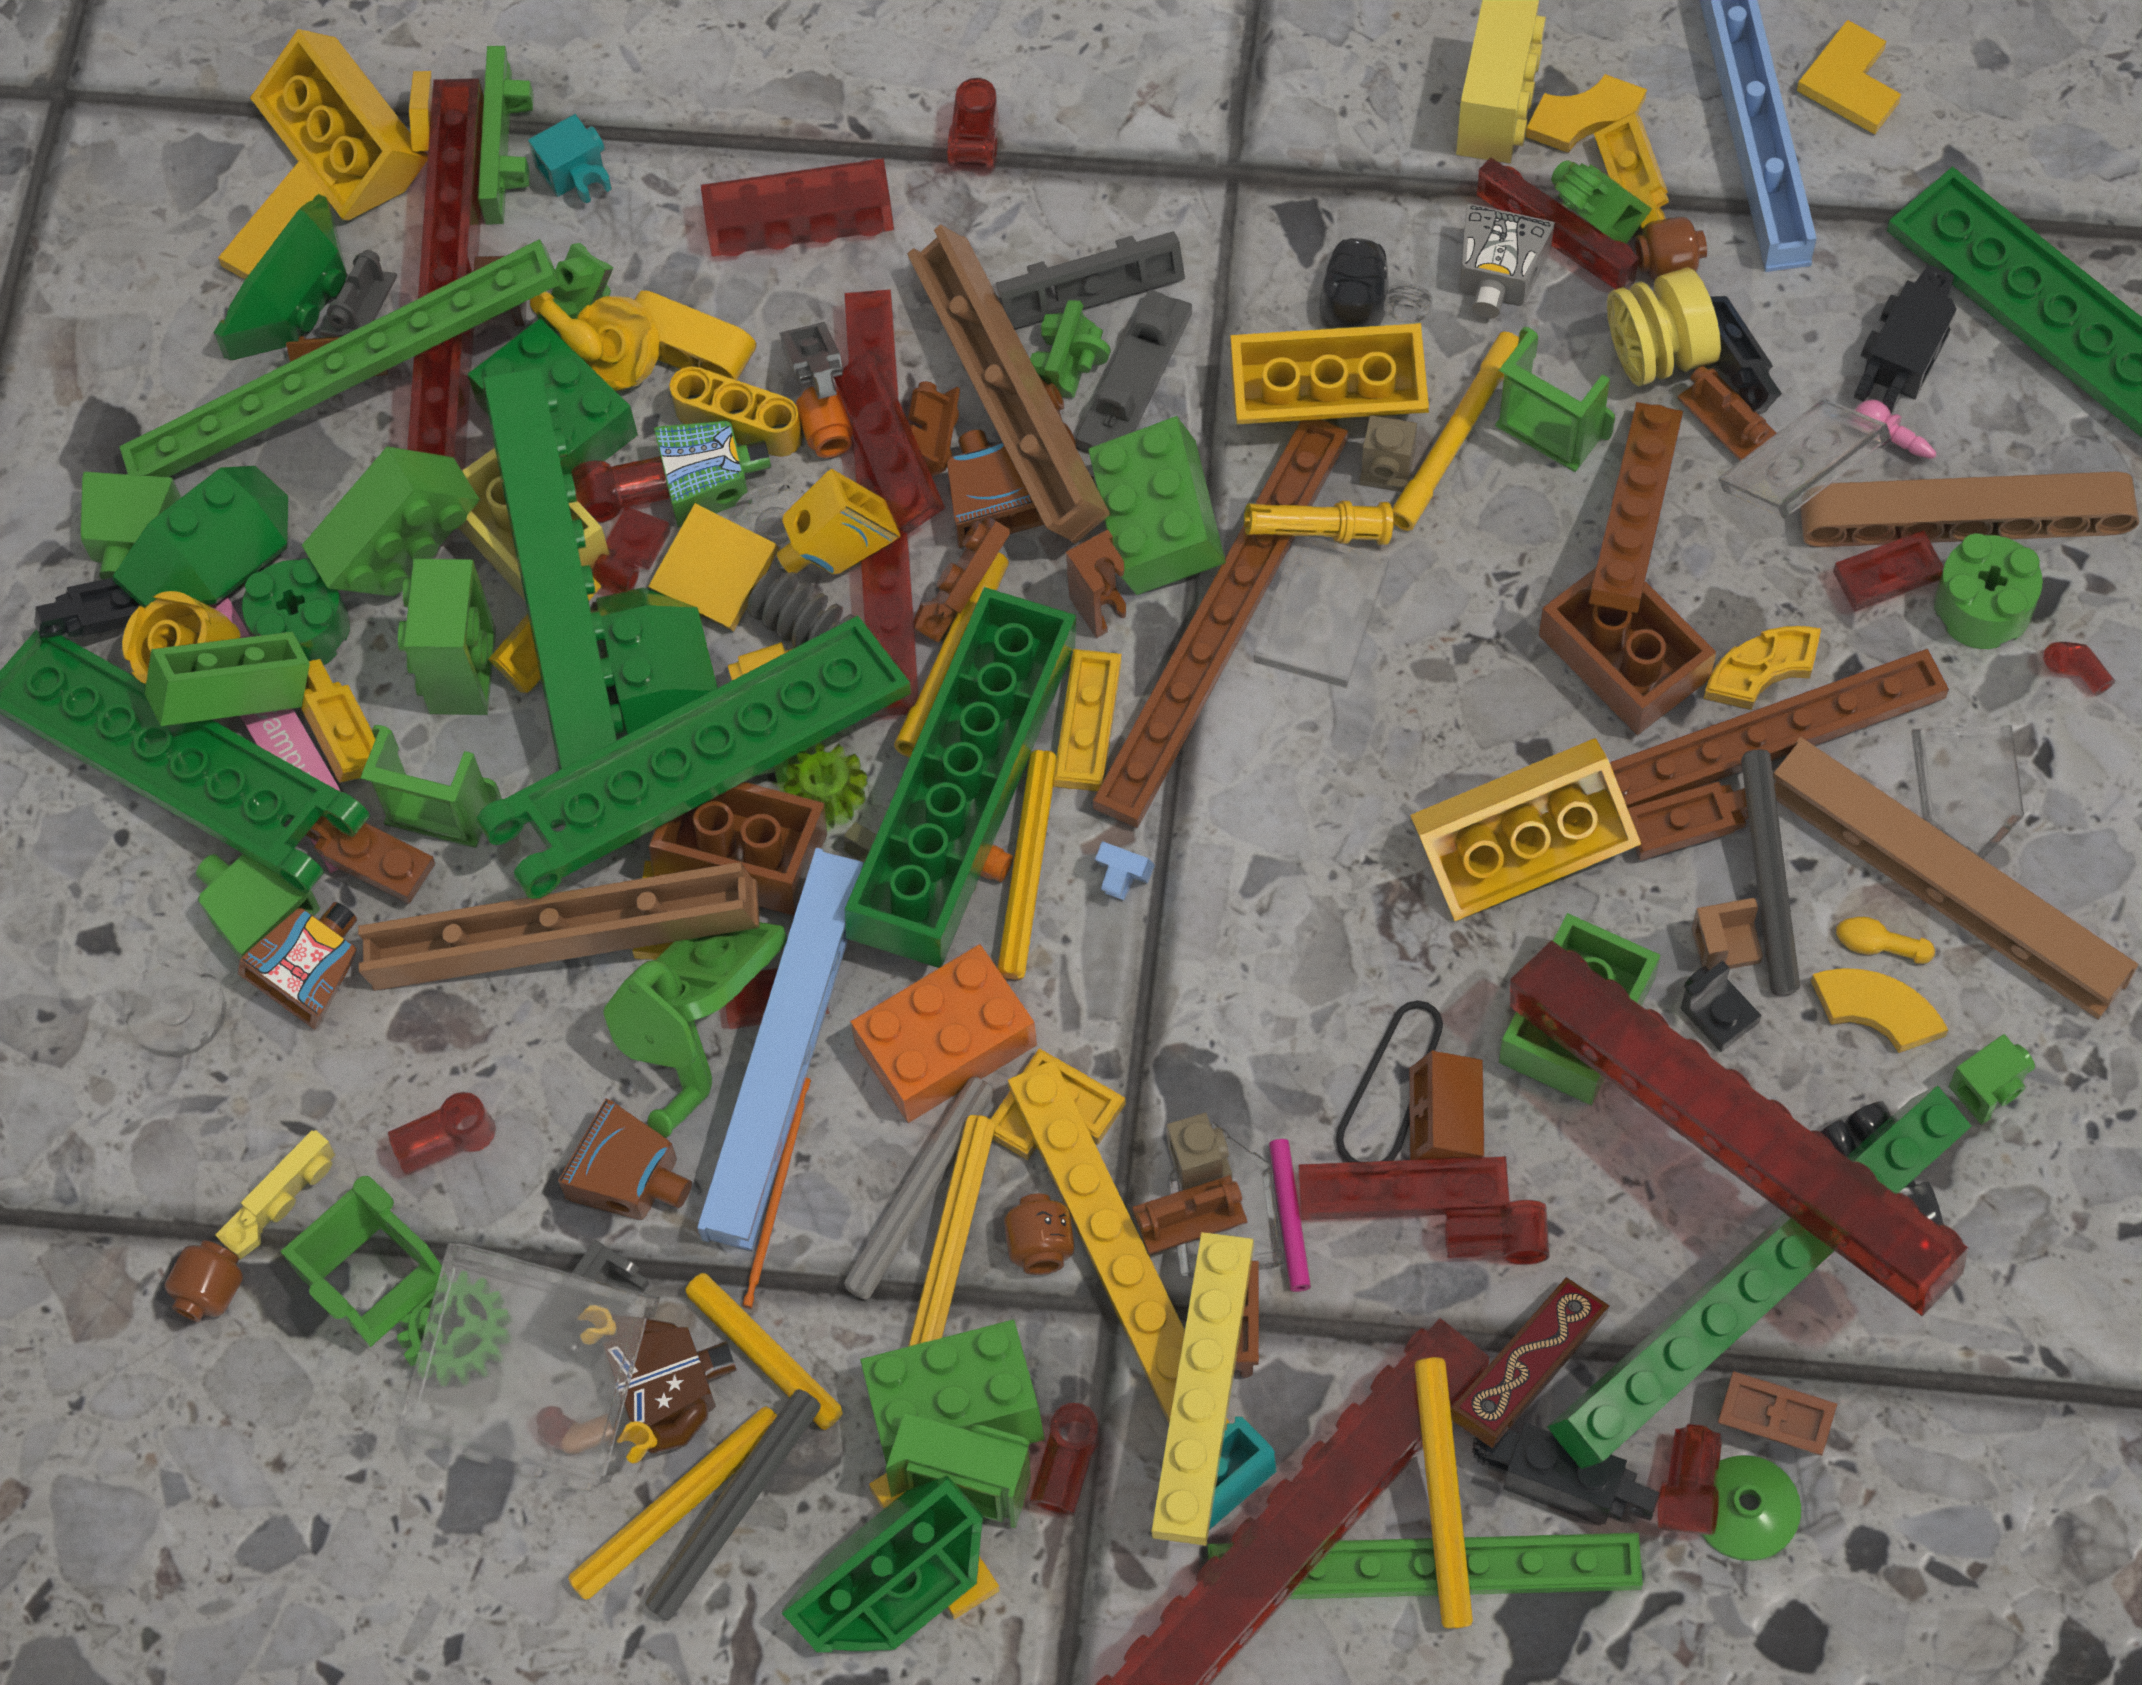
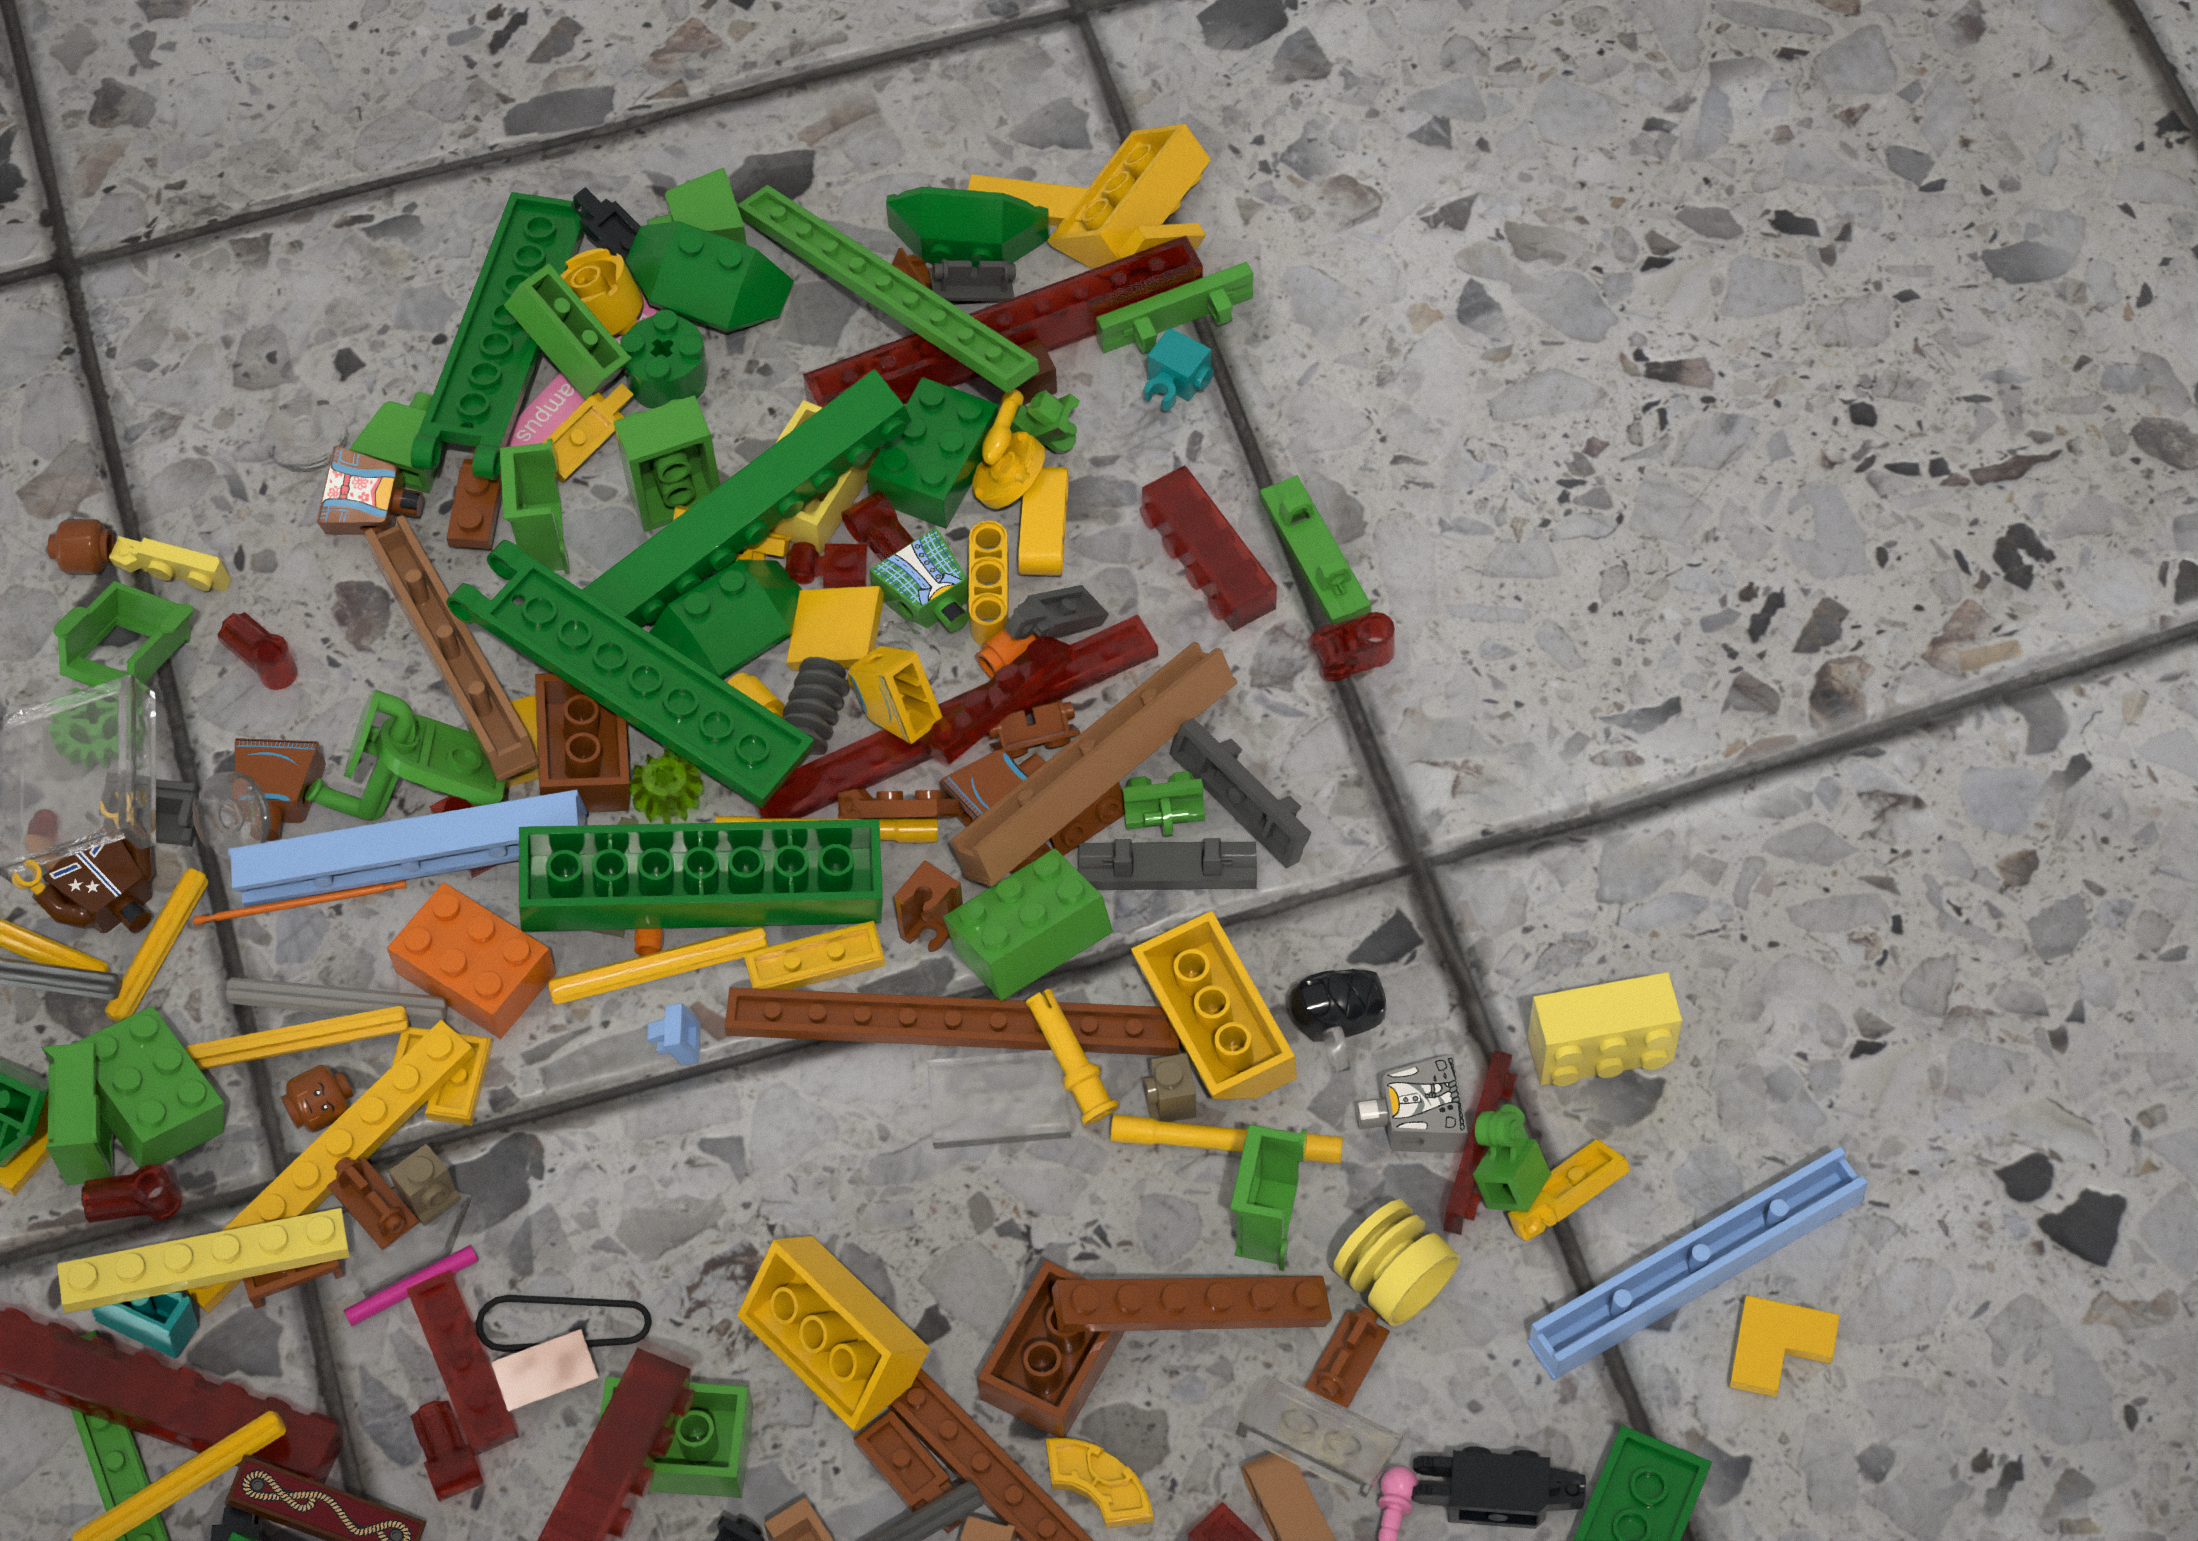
camera: 65 degrees right, 5 degrees down
(387, 519) = (750, 378): bright green brick -> none
(651, 1215) = (231, 812): none -> clear tile
(843, 124) = (1314, 551): none -> bright green hinge
(1568, 119) = (1607, 1114): yellow tile -> none
(1669, 246) = (1497, 1245): dark orange head -> none
(1743, 358) = (1417, 1338): black hinge -> none

